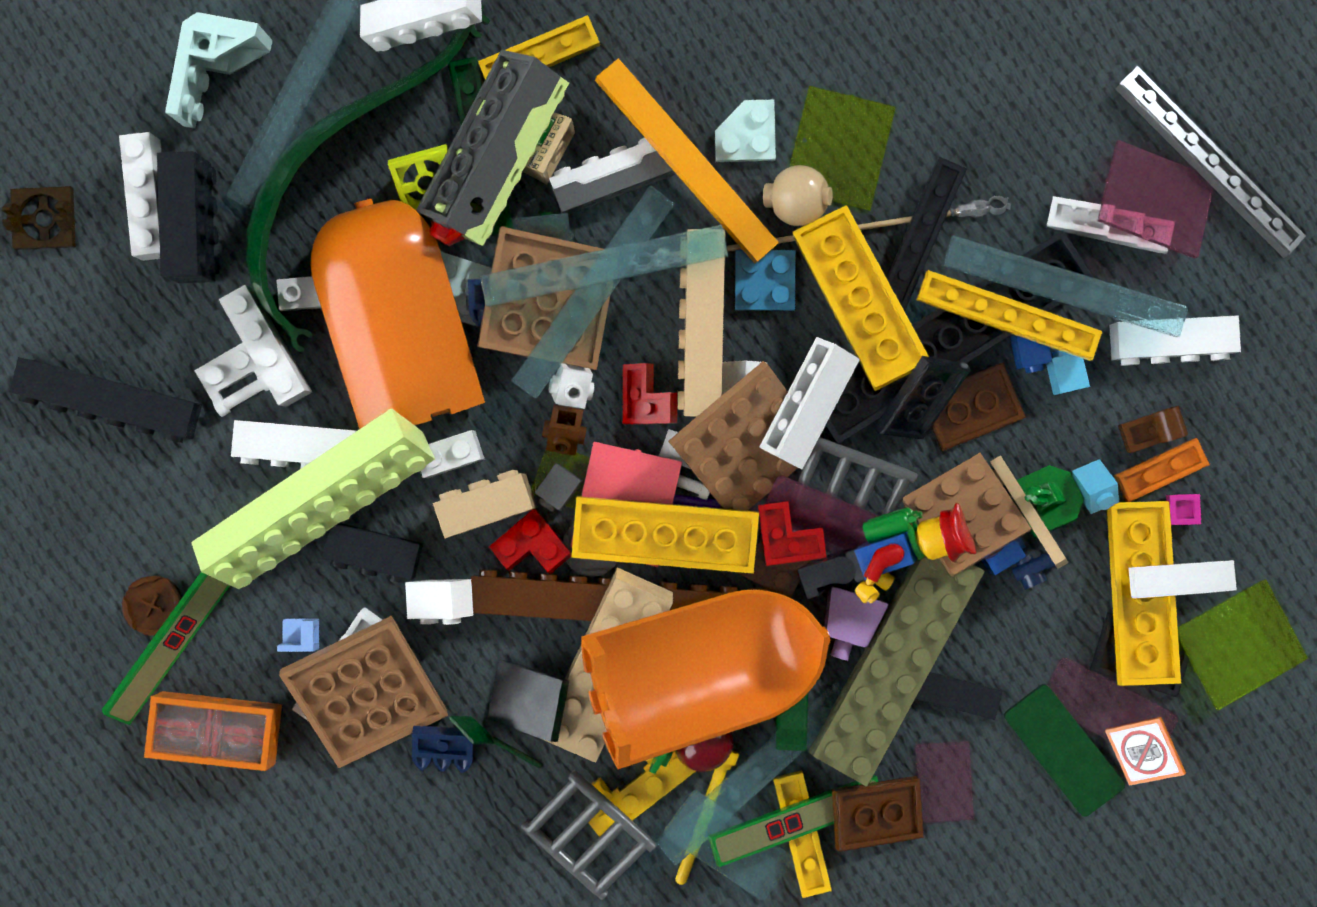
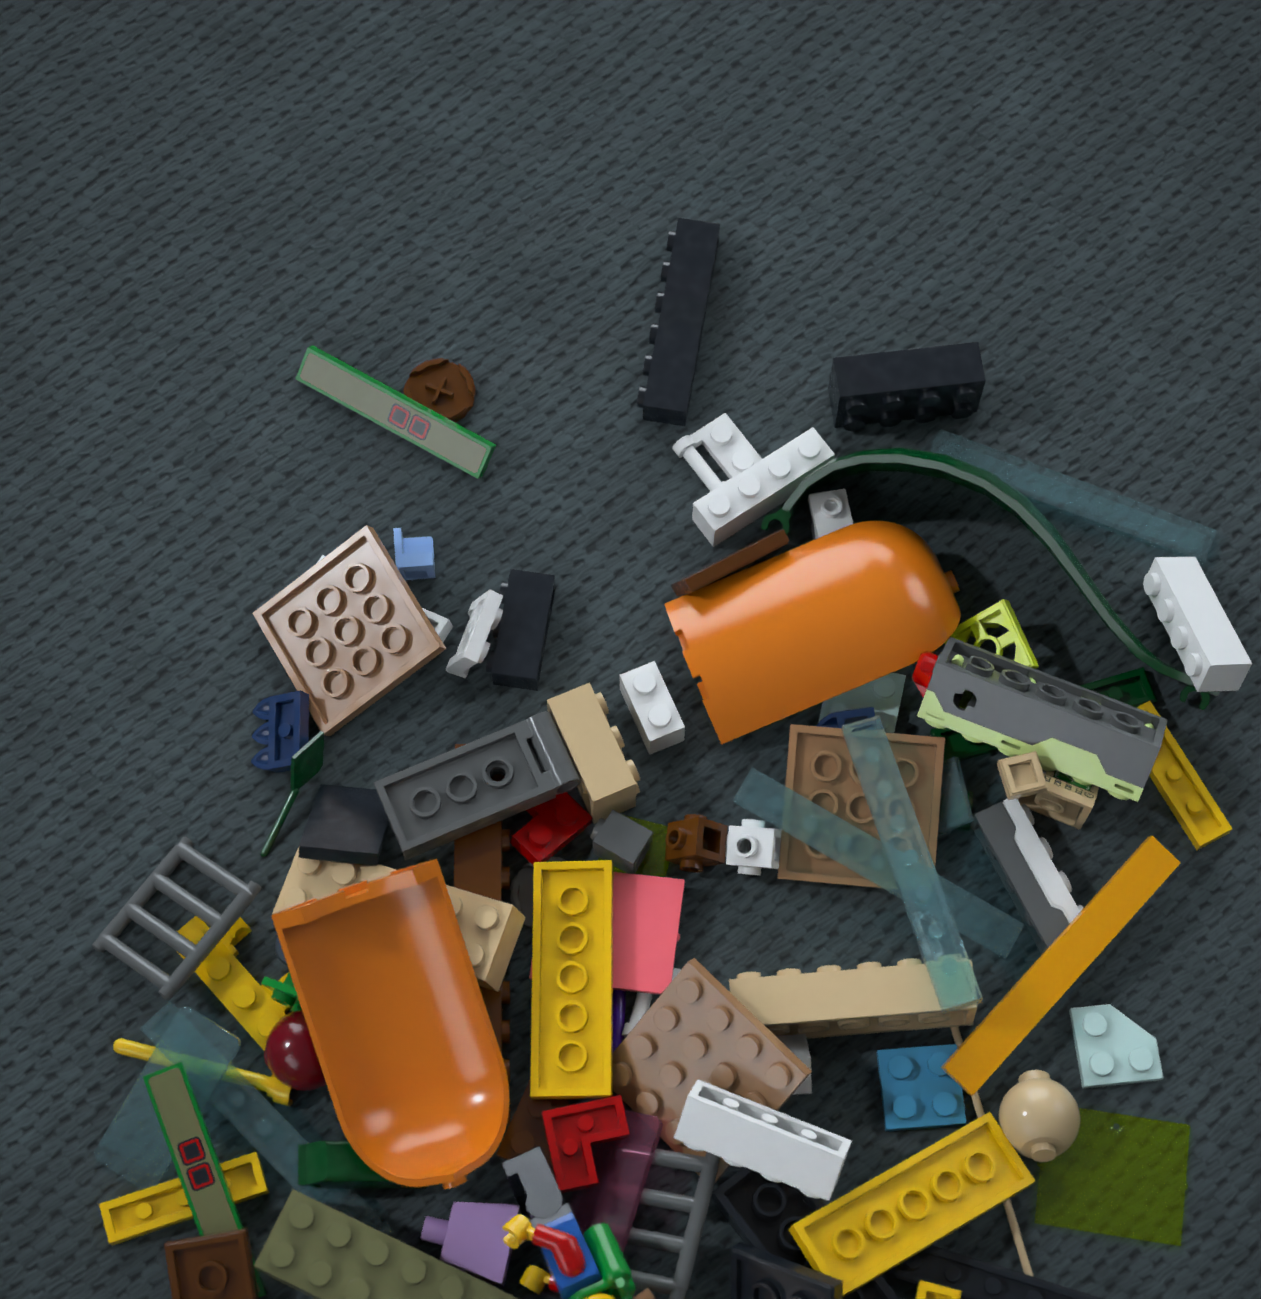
camera: 85 degrees right, 20 degrees down
(64, 219) = (886, 260): dark brown piece -> none
(141, 192) = (938, 330): white brick -> none
(213, 731) = (293, 467): brick -> none
(214, 46) = (1115, 379): light aqua bracket -> none
(282, 442) = (647, 531): white brick -> none
(313, 500) = (583, 550): yellowish green brick -> none
(333, 379) = (730, 563): none -> reddish brown tile
(387, 593) = (473, 647): none -> white plate
(439, 600) = (466, 706): white brick -> none
(513, 613) = (457, 792): none -> dark grey hinge
(542, 169) = (1022, 775): none -> tan tile
(641, 402) = (741, 936): red plate -> none

